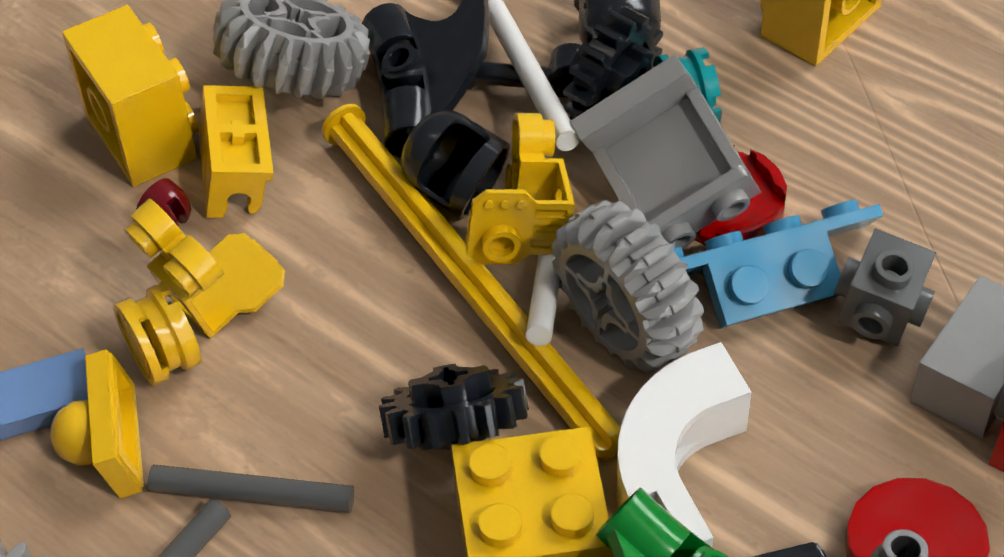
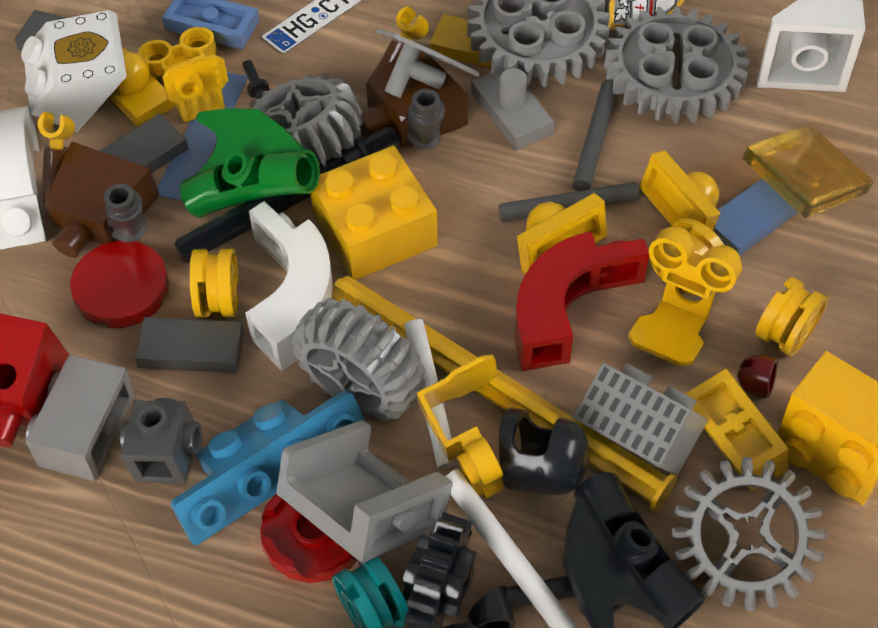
camera: 160 degrees right, 5 degrees up
(87, 234) = (791, 316): none -> yellow wheel
(294, 424) = (552, 223): none -> yellow tile
(332, 162) = (641, 418): none -> light grey brick
(332, 360) = (558, 280): none -> red arch
(453, 407) = (441, 238): black gear -> none
(782, 468) = (214, 282): none -> yellow wheel
(829, 430) = (190, 344): none -> dark grey tile

